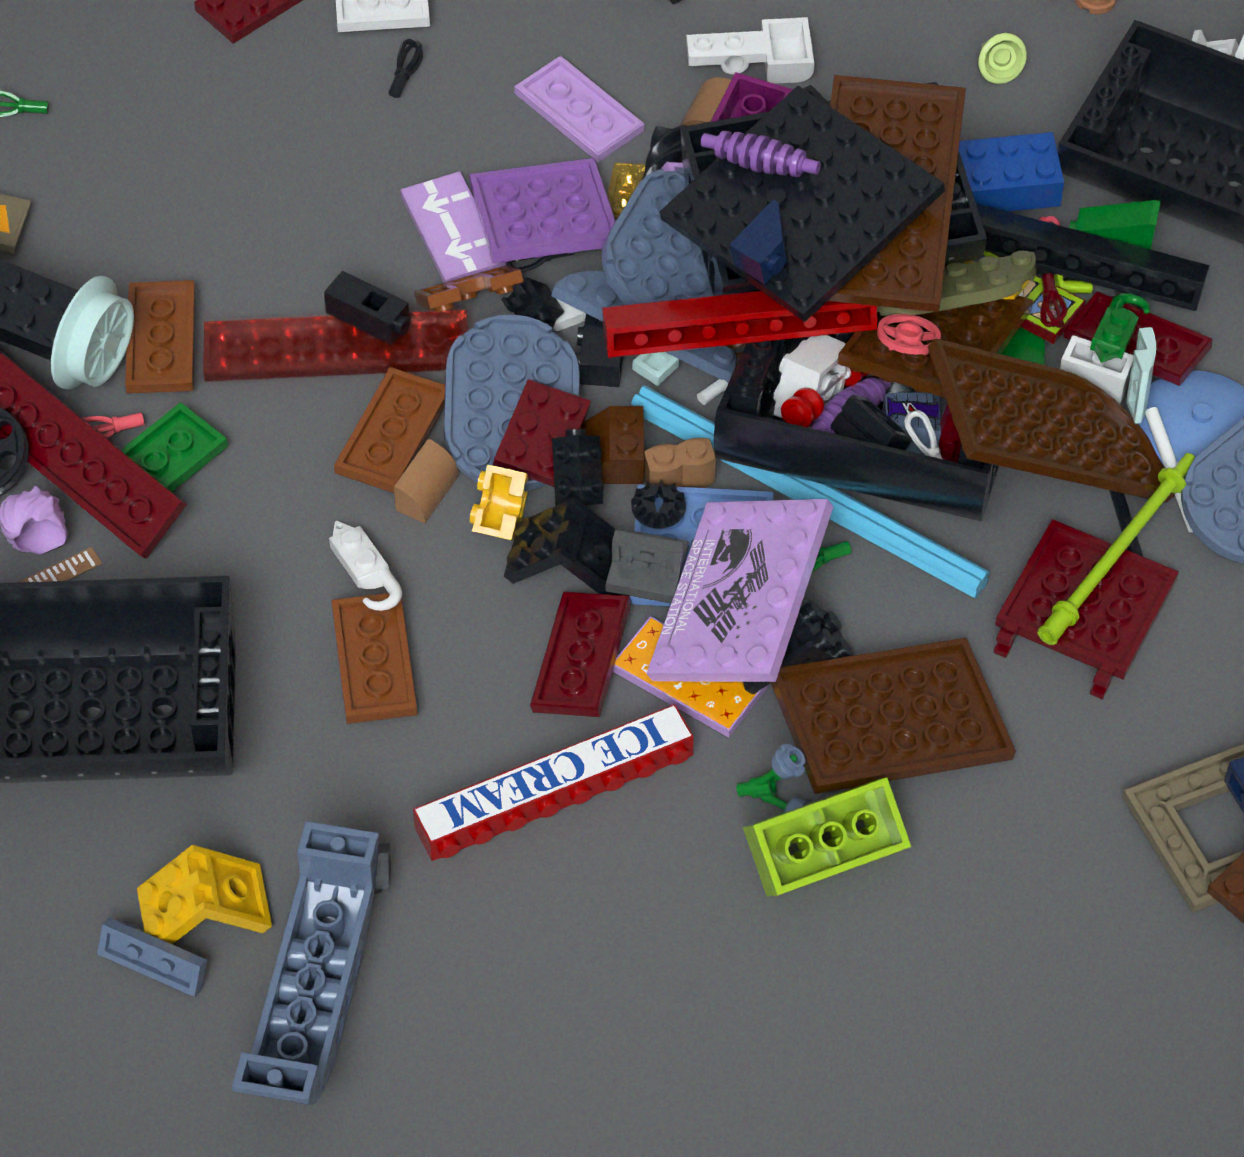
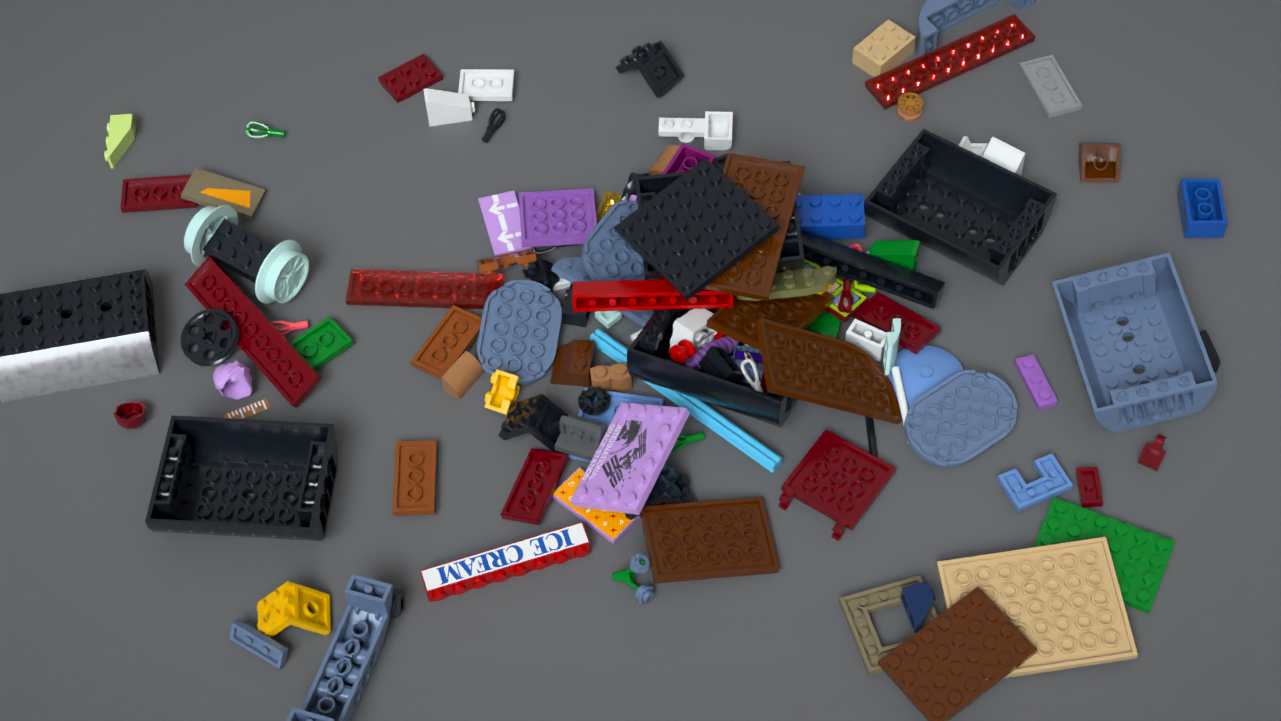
camera: 10 degrees right, 0 degrees up
(162, 337) = (325, 276): dark orange plate -> none
(323, 43) = (447, 107): none -> white slope
(364, 564) = (418, 422): white plate -> none
(367, 308) = (444, 269): black brick -> none
(538, 418) = (533, 352): dark red plate -> none
(577, 468) = (549, 375): black brick -> none
(579, 108) = (591, 157): lavender tile -> none
(760, 153) = (674, 198): medium lavender piece -> none
(761, 245) = (666, 252): dark blue slope -> none
(846, 849) = (669, 618): lime brick -> none
(907, 334) = (750, 311): coral wheel -> none
(1002, 58) = (845, 145): yellowish green hat -> none
(1066, 612) = (821, 487): lime bar -> none
(1117, 327) = (882, 316): green plate -> none

